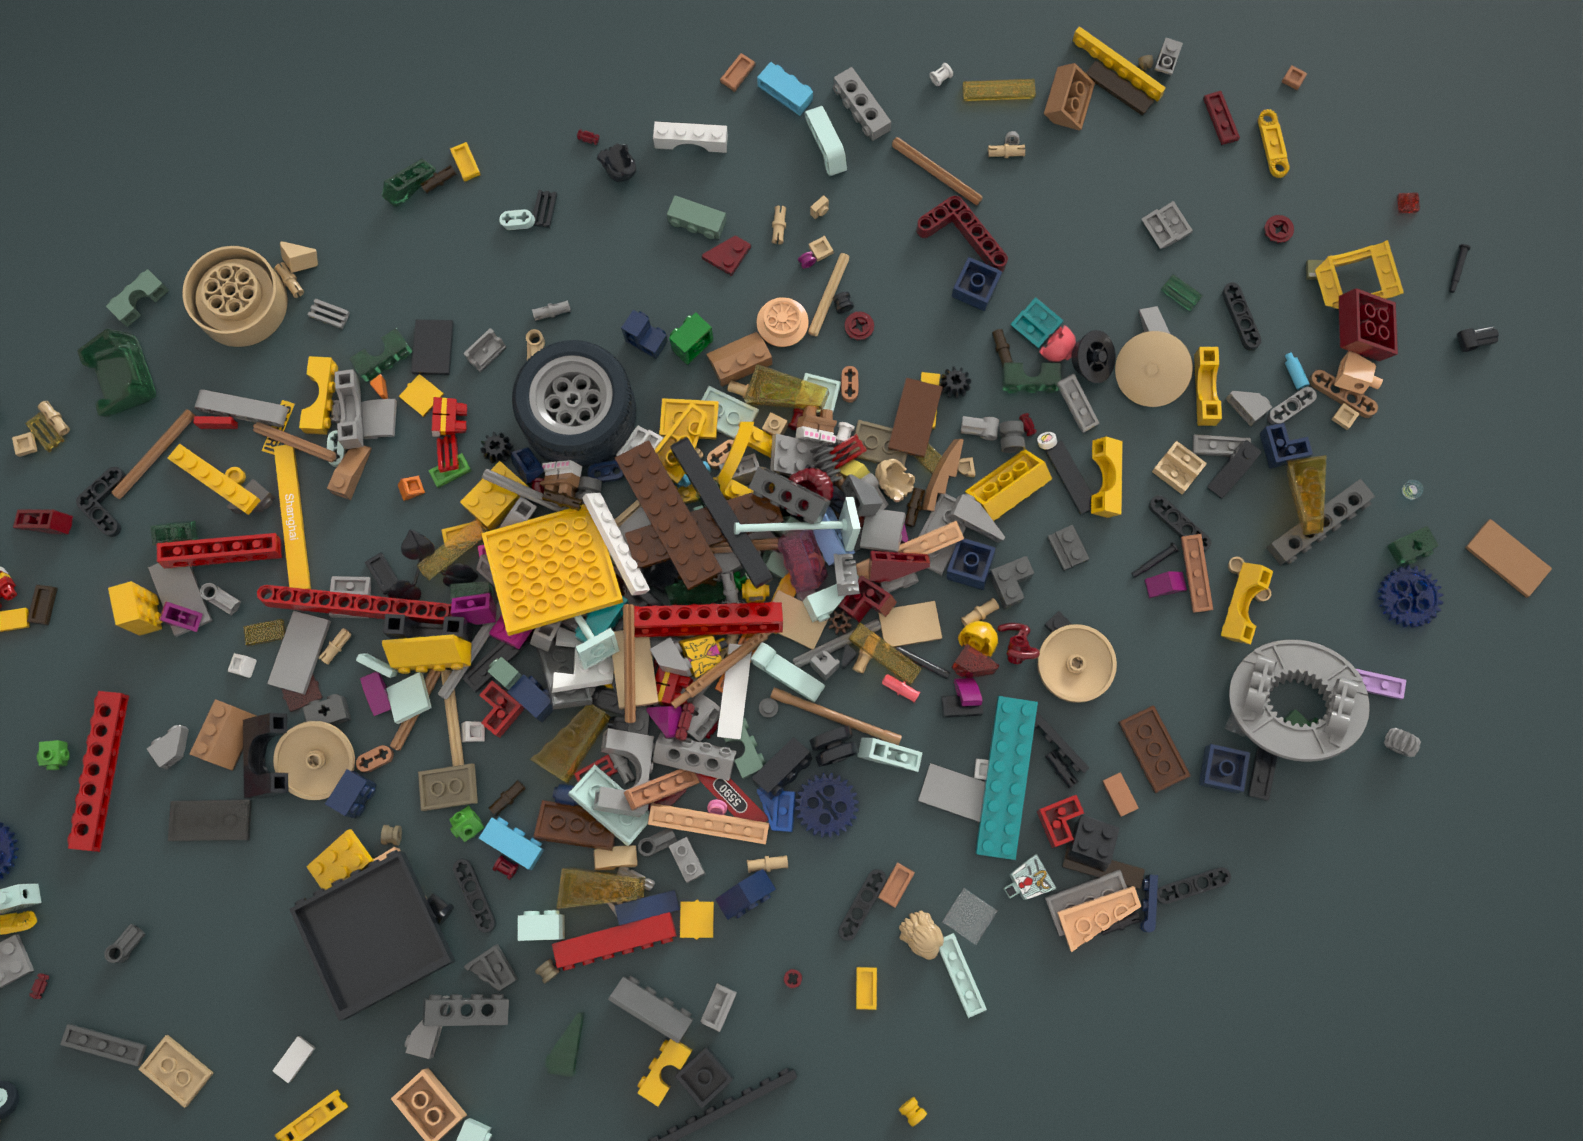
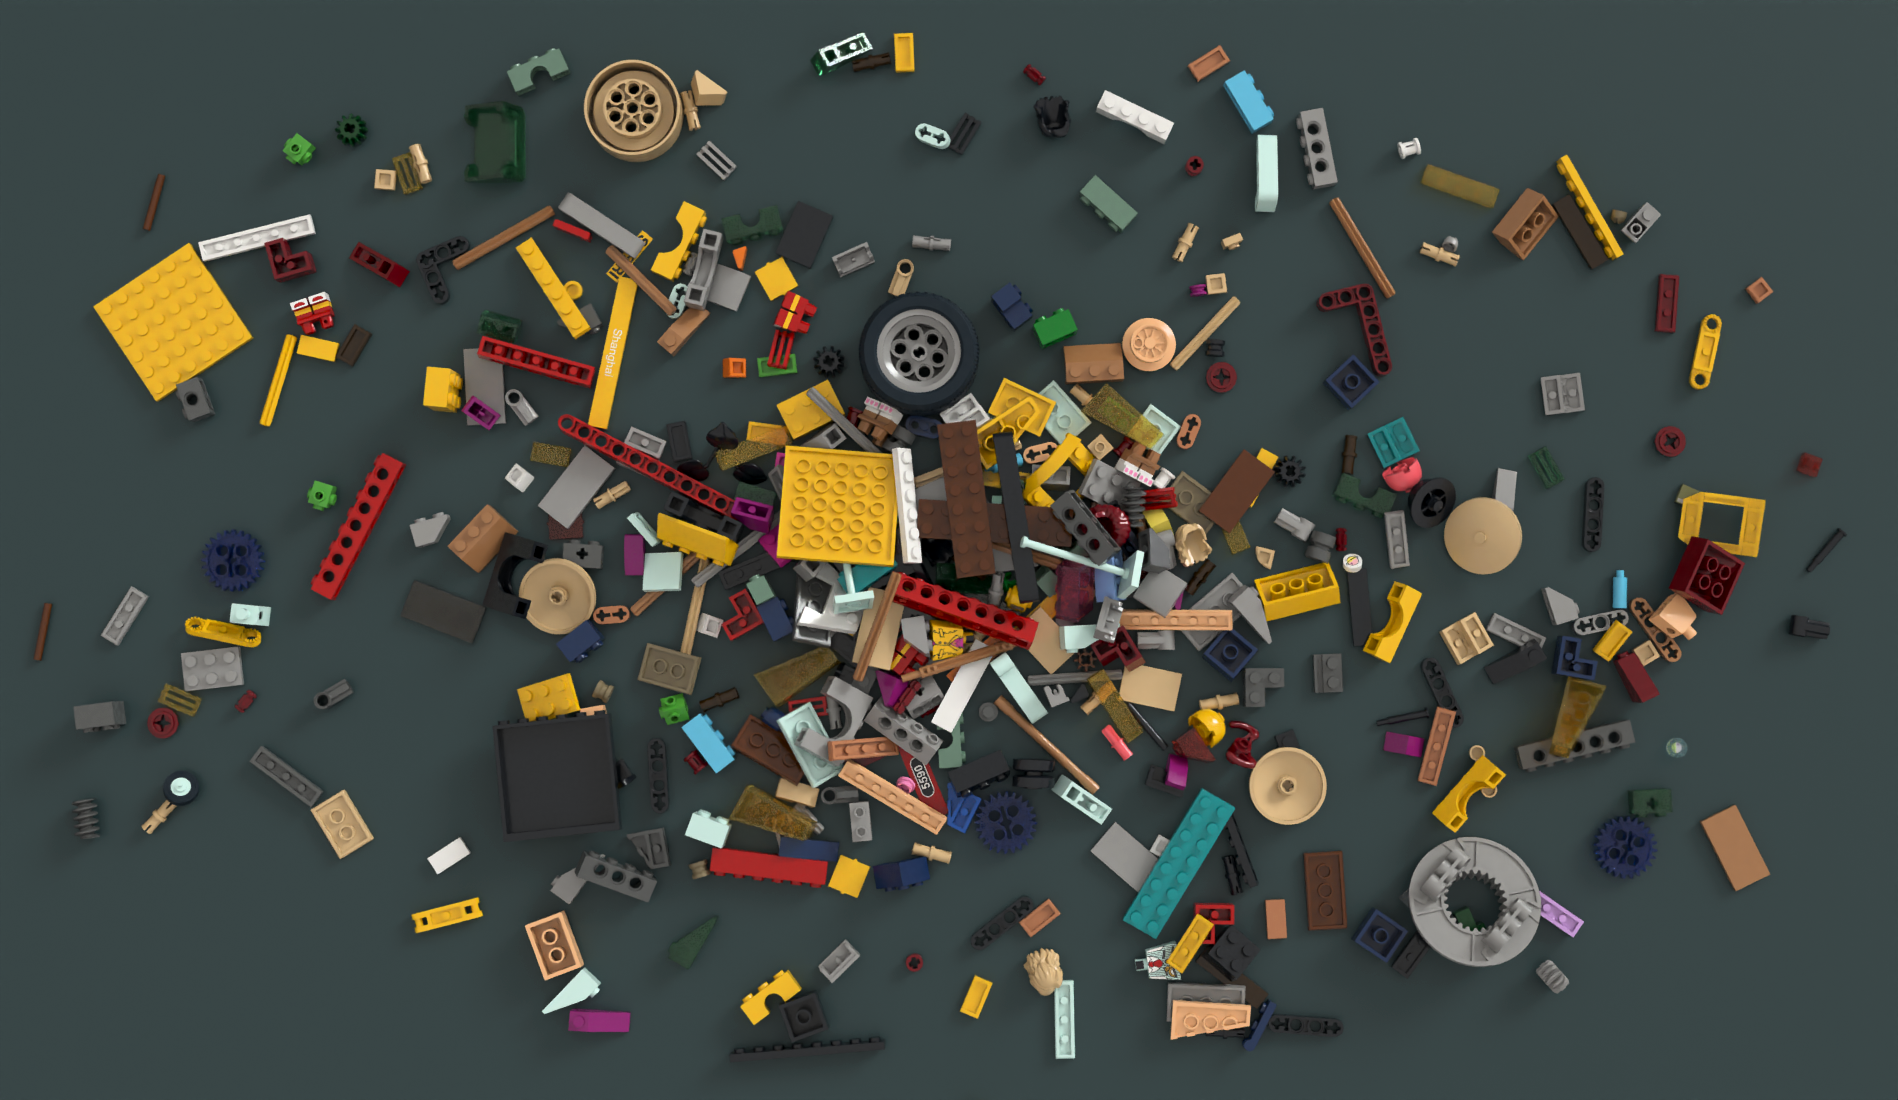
camera: 20 degrees right, 10 degrees up
(526, 464) = (851, 390): dark blue slope -> none
(562, 499) = (873, 443): dark brown pin -> none
(651, 1009) = (779, 939): dark grey slope -> none
(728, 254) = (1123, 253): dark red wing -> none
(760, 152) = (1199, 163): none -> dark red bush
(894, 565) = (1157, 629): dark red slope -> none
(946, 468) = (1243, 553): medium nougat slope -> none
(969, 916) = (1093, 971): clear tile -> none
(1050, 848) = (1190, 943): none -> yellow tile
(1207, 401) = (1529, 564): yellow arch -> none
(1310, 417) = (1612, 640): none -> yellow tile
(1347, 440) = (1635, 677): none -> dark red slope

